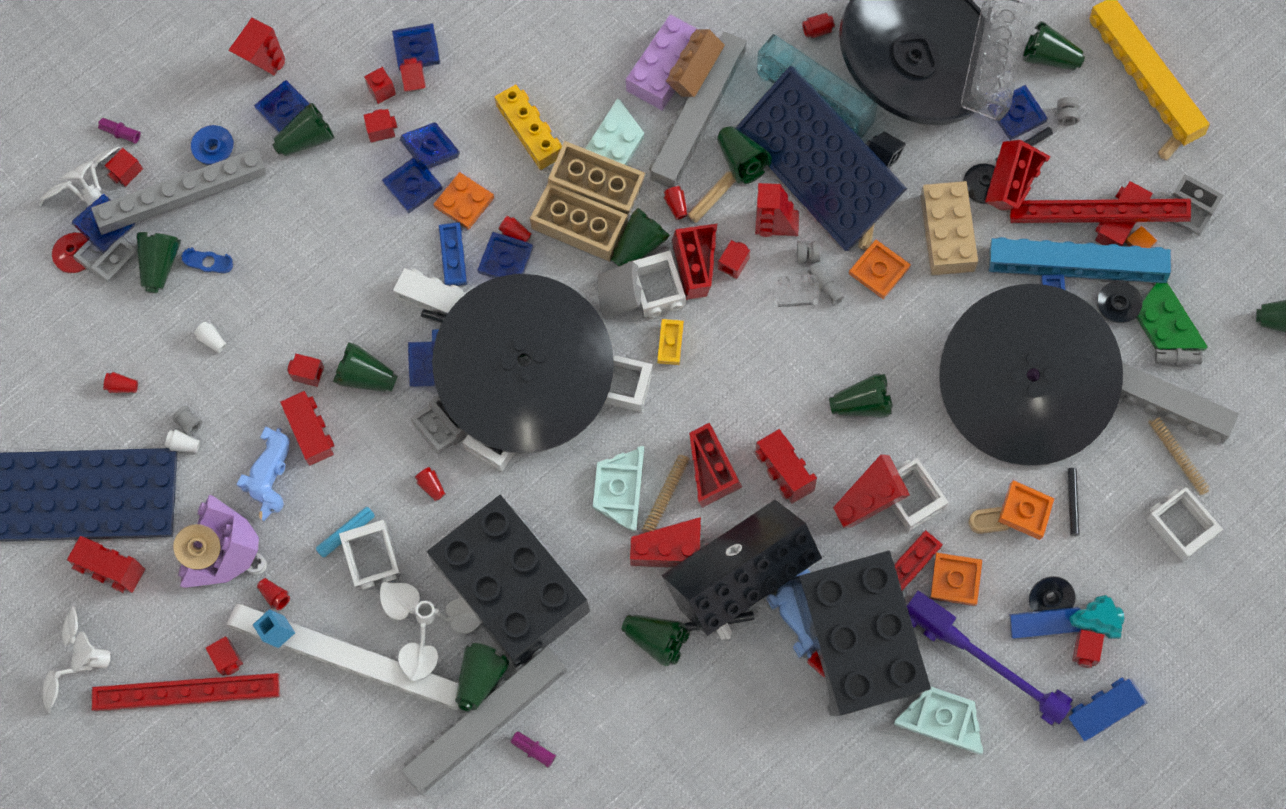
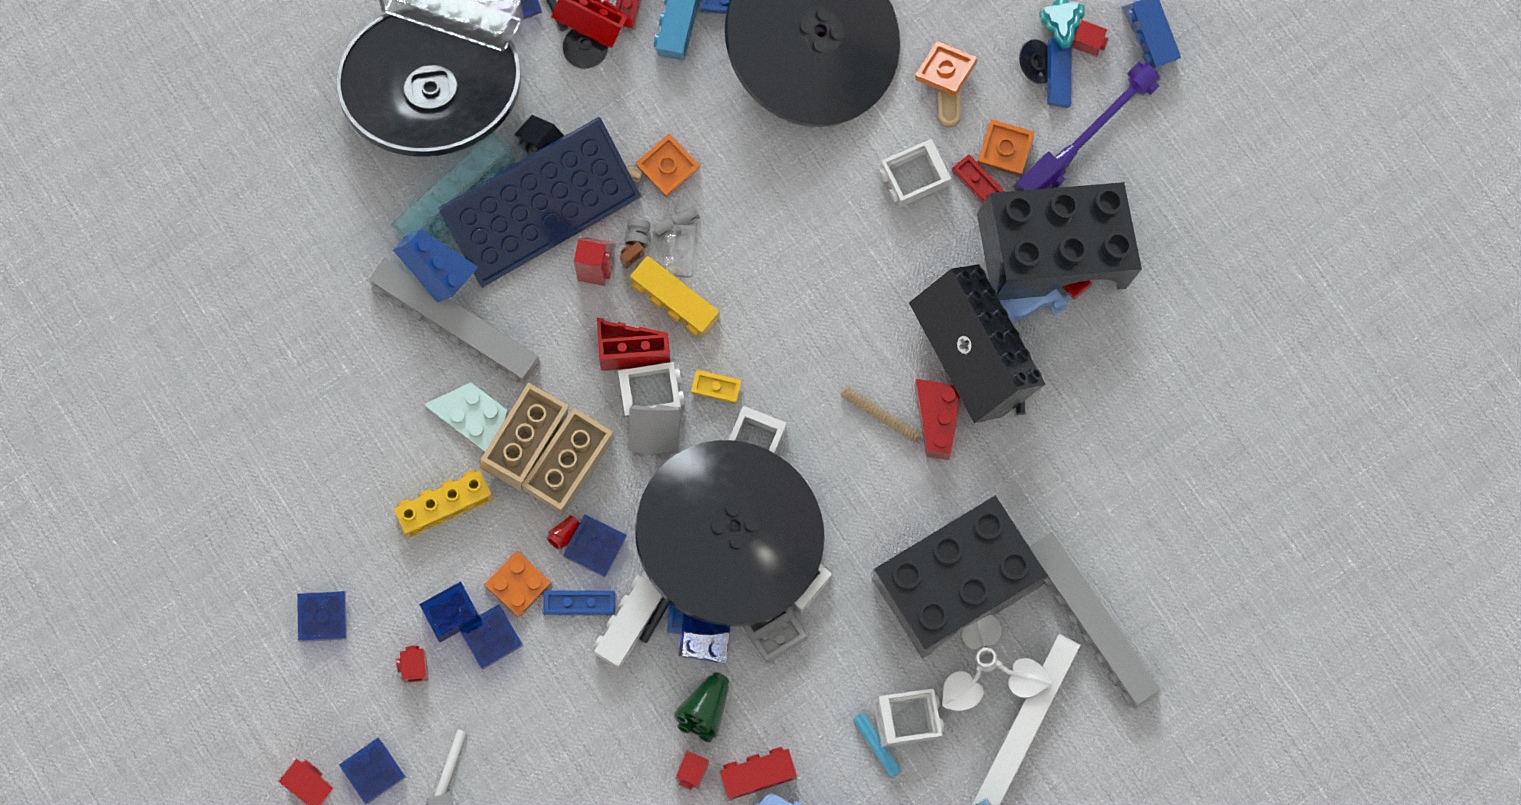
camera: 85 degrees left, 5 degrees up
(303, 132) = (410, 749): dark green cone -> none
(310, 172) = (450, 763): none -> white bar
(380, 85) = (365, 659): red brick -> none
(412, 74) = (360, 621): red brick -> none
(430, 483) = (837, 650): red cone -> none
(478, 675) = (1052, 618): dark green cone -> none
(533, 749) = (1126, 577): magenta axle -> none
(619, 487) = (867, 458): light aqua wing -> none
(638, 238) = (599, 402): dark green cone -> none
(650, 73) = (391, 346): lavender brick -> none
(657, 637) = (1030, 441): dark green cone -> none
(676, 202) = (558, 359): red cone -> none
(695, 62) = (406, 312): medium nougat brick -> none
(711, 197) = (557, 322): tan axle -> none
(712, 467) = (860, 361): red wedge -> none
(734, 259) = (634, 308): red brick -> none
(741, 75) = (434, 264): none -> blue wedge
(743, 155) = (515, 283): dark green cone -> none
(750, 293) = (674, 297): none -> yellow brick
(785, 466) = (870, 290): red wedge -> none
(786, 249) = (631, 254): none -> dark orange plate
(818, 25) = (375, 182): red brick -> none
(863, 399) = (809, 202): dark green cone -> none
(871, 493) = (916, 208): red wedge -> none
(944, 719) = (1144, 180): light aqua wing -> none
(949, 228) = (634, 89): tan brick -> none
(1073, 502) = (939, 24): black bar -> none

